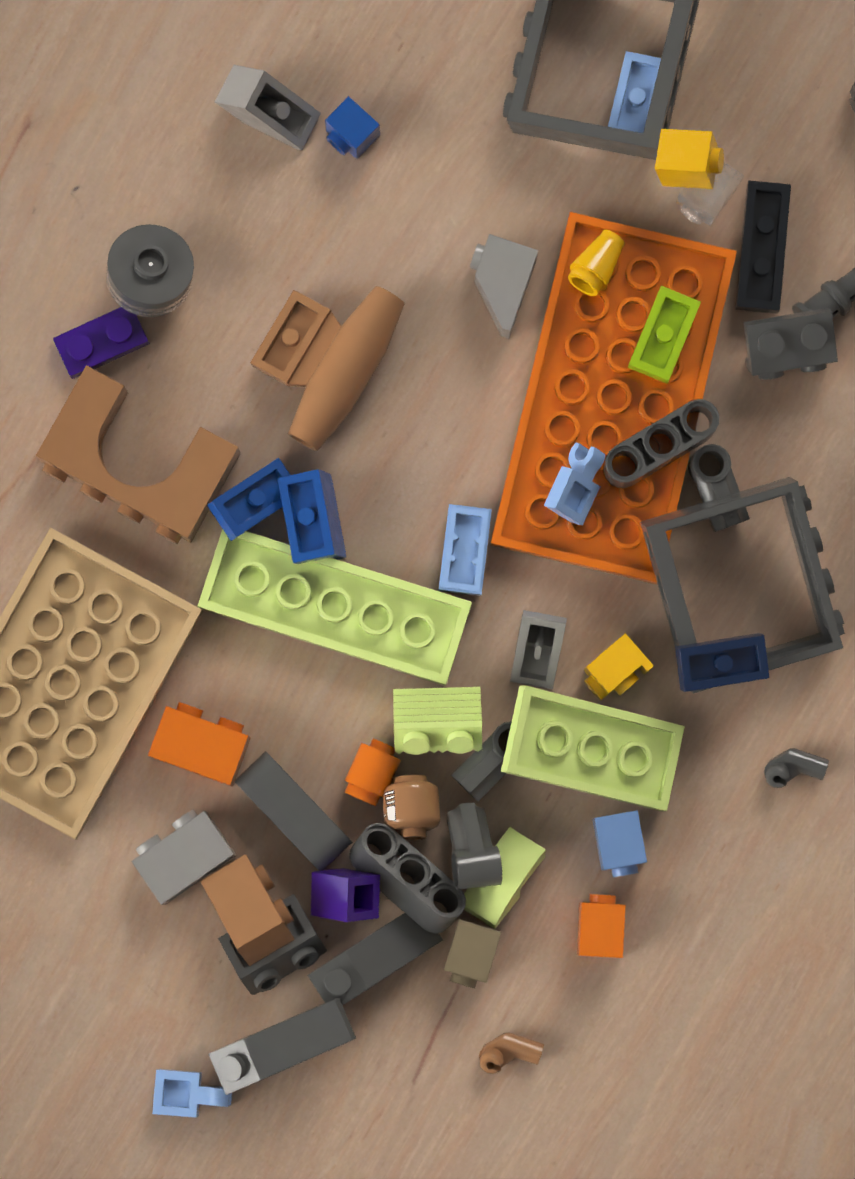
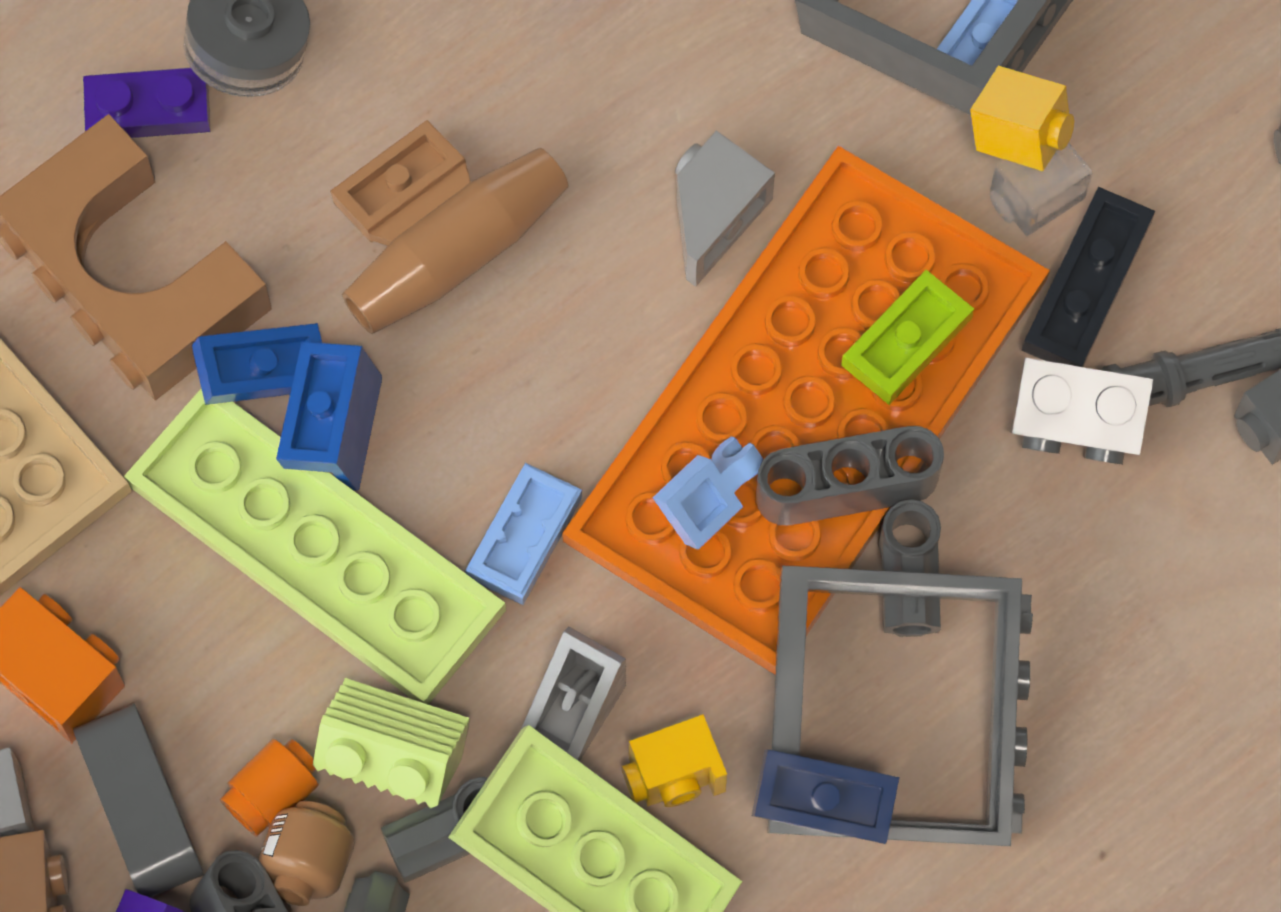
camera: 20 degrees right, 15 degrees down
(596, 264) = (847, 216): yellow cone -> none

